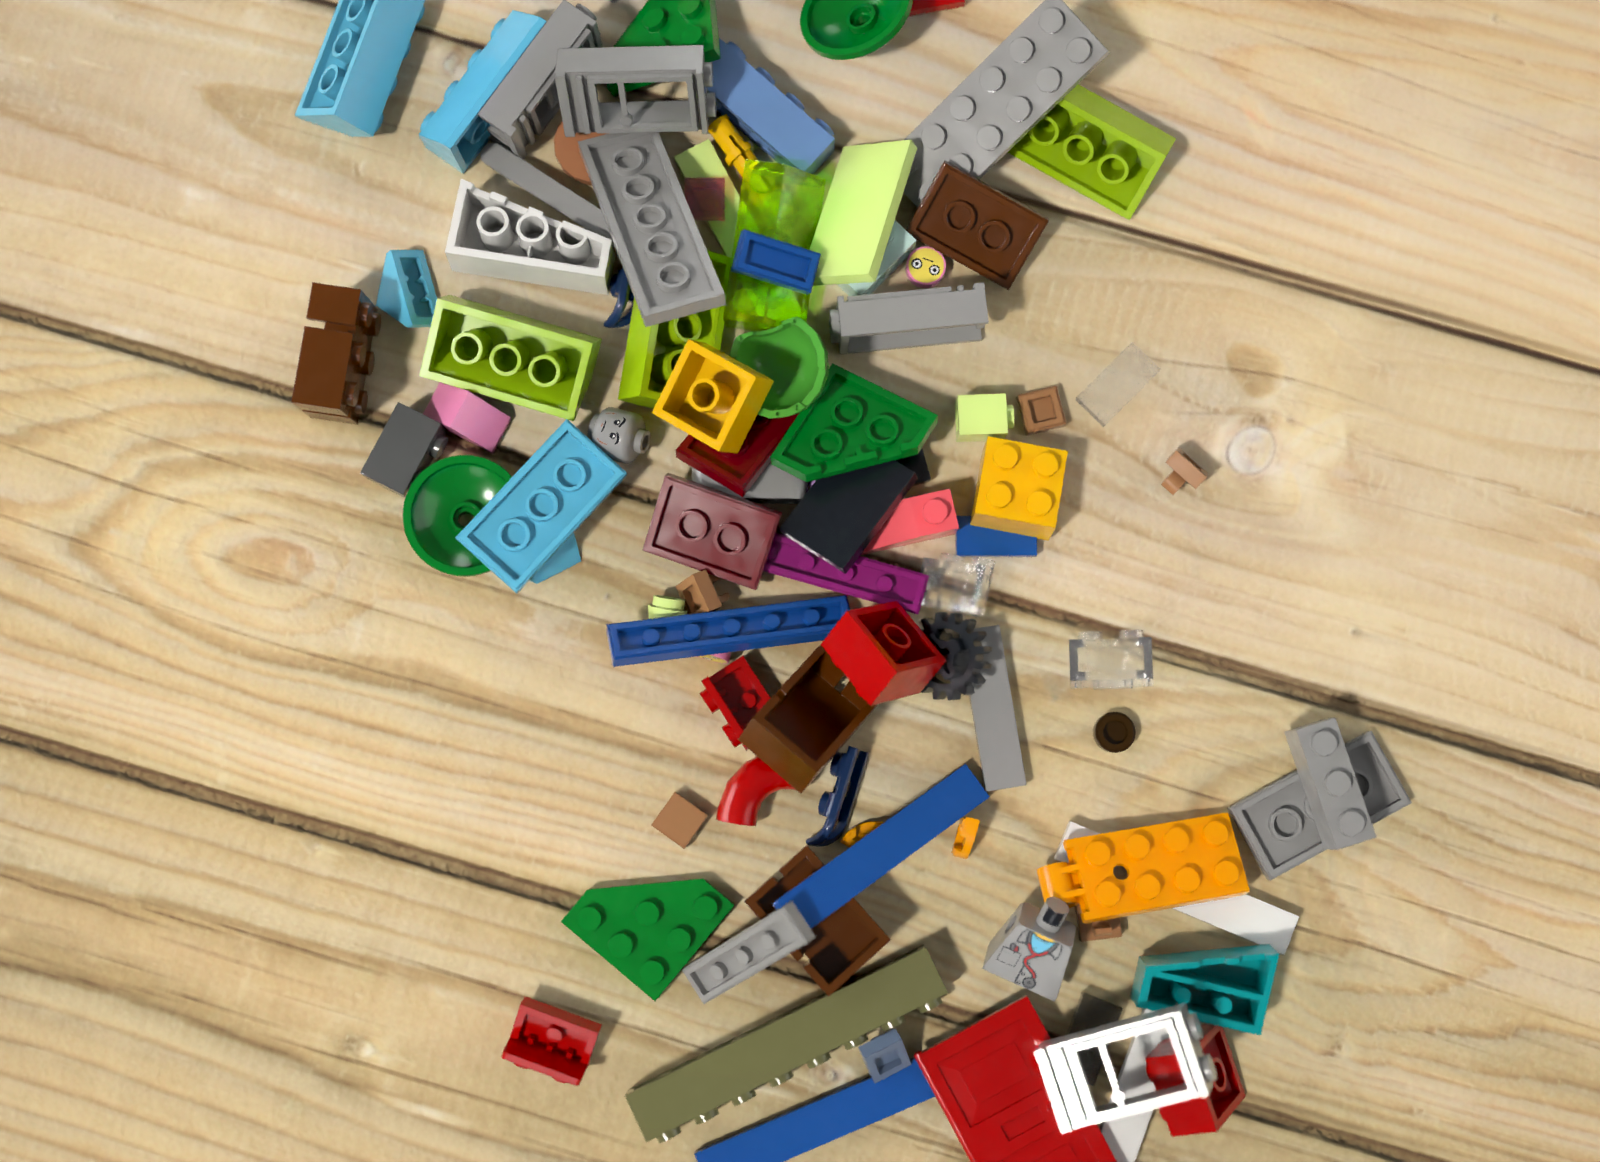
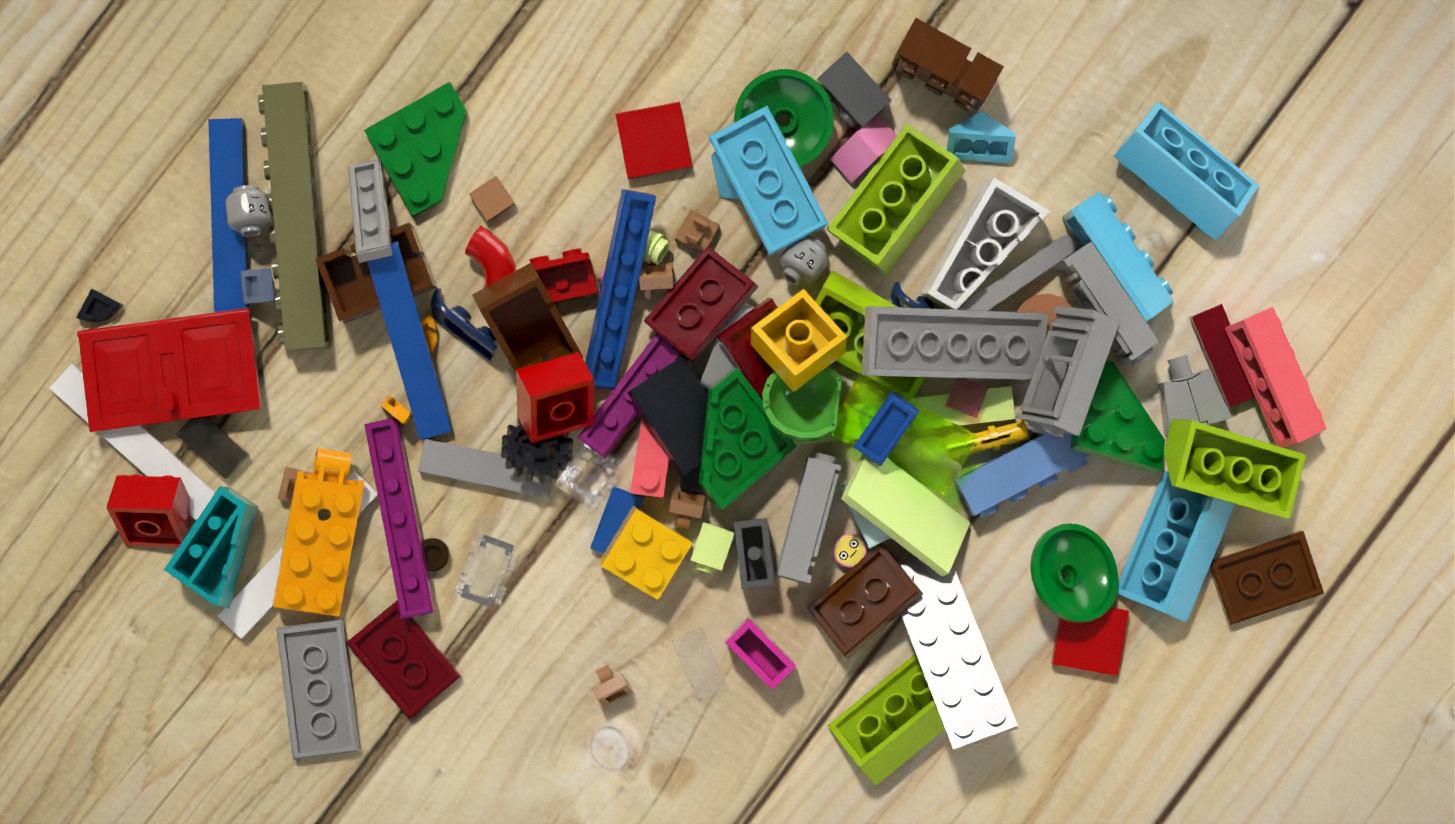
camera: 110 degrees right, 5 degrees up
(543, 659) = (653, 140): none -> red tile
(551, 1041) = (363, 42): red bracket -> none
(630, 570) = (697, 231): none -> medium nougat tile
(800, 1101) = (248, 210): none -> light grey head
(947, 463) = (686, 505): none -> medium nougat tile
(971, 365) = (754, 553): none -> dark grey brick
(1033, 947) = (293, 427): light grey torso -> none
(1041, 410) = (701, 596): medium nougat tile -> none
(1069, 1086) = (179, 410): door -> none
(1080, 317) = (760, 652): none -> dark pink brick
(1088, 784) = (400, 518): none -> magenta tile
(1246, 720) = (403, 660): none -> dark red tile
(1330, 784) = (329, 699): light grey brick -> none

